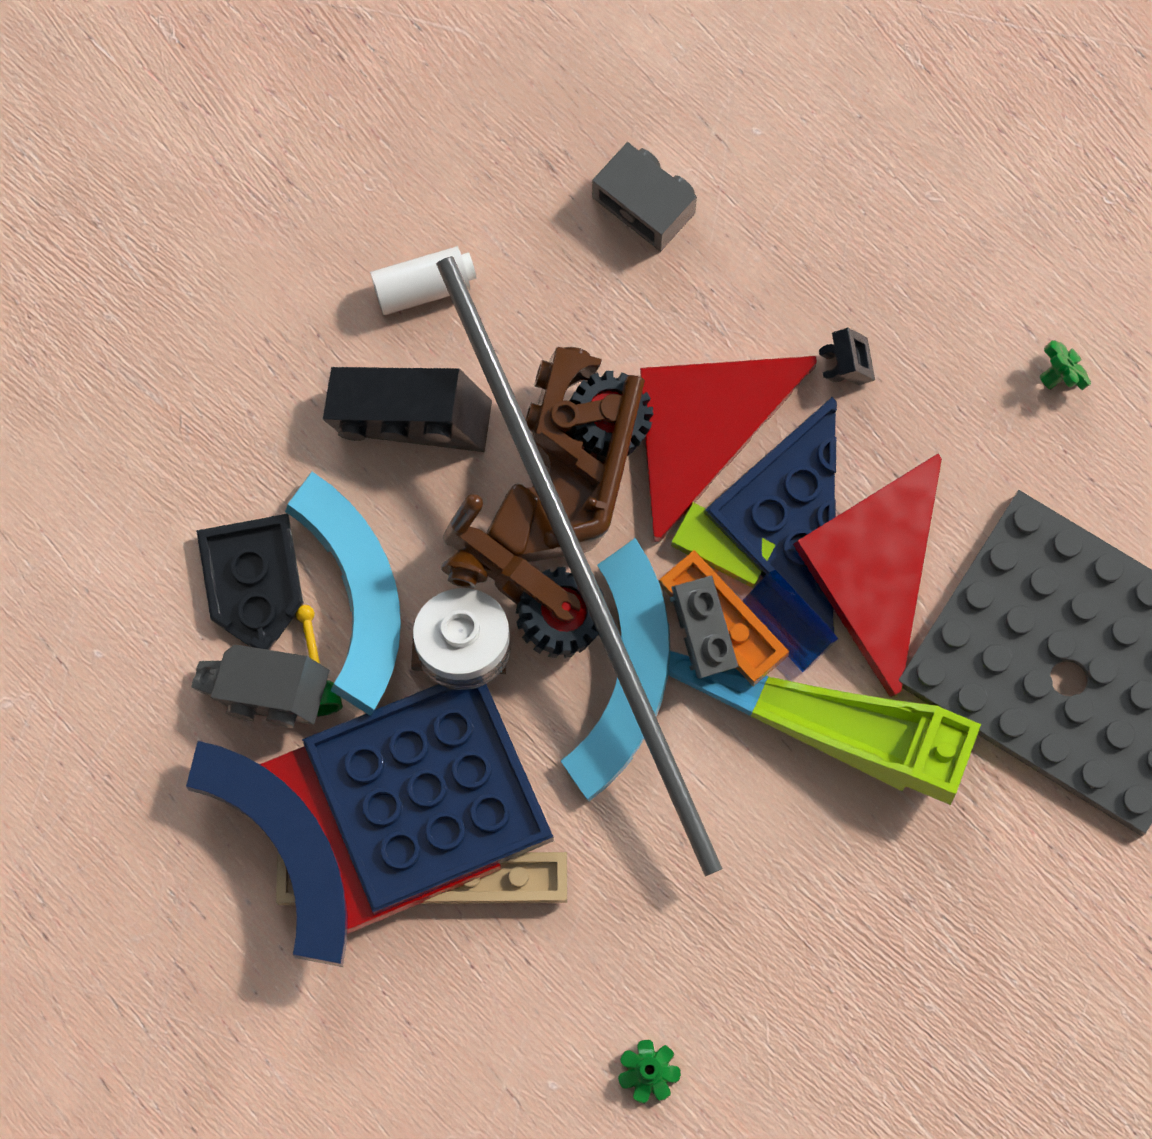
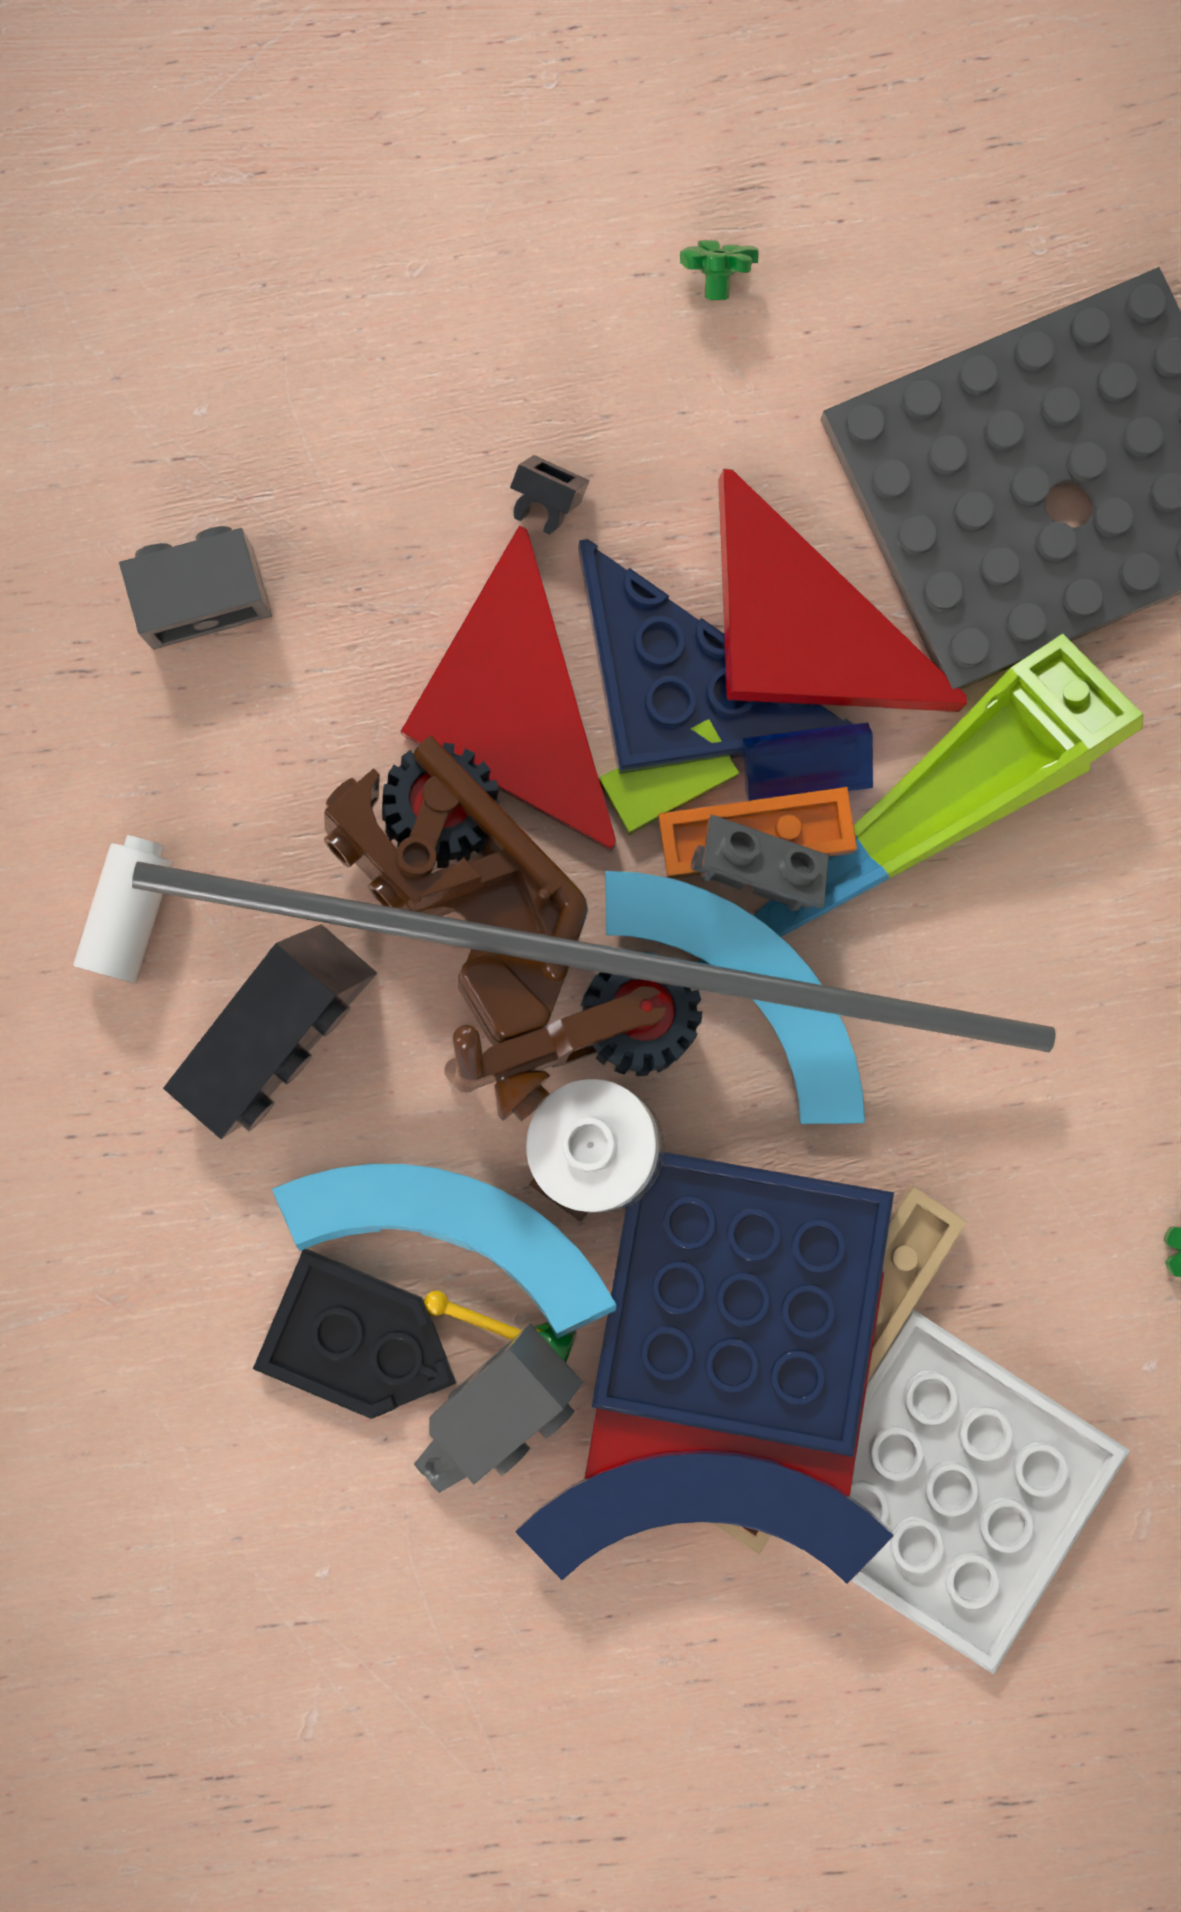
camera: 60 degrees left, 10 degrees up
(401, 1012) = (976, 1486): none -> white tile

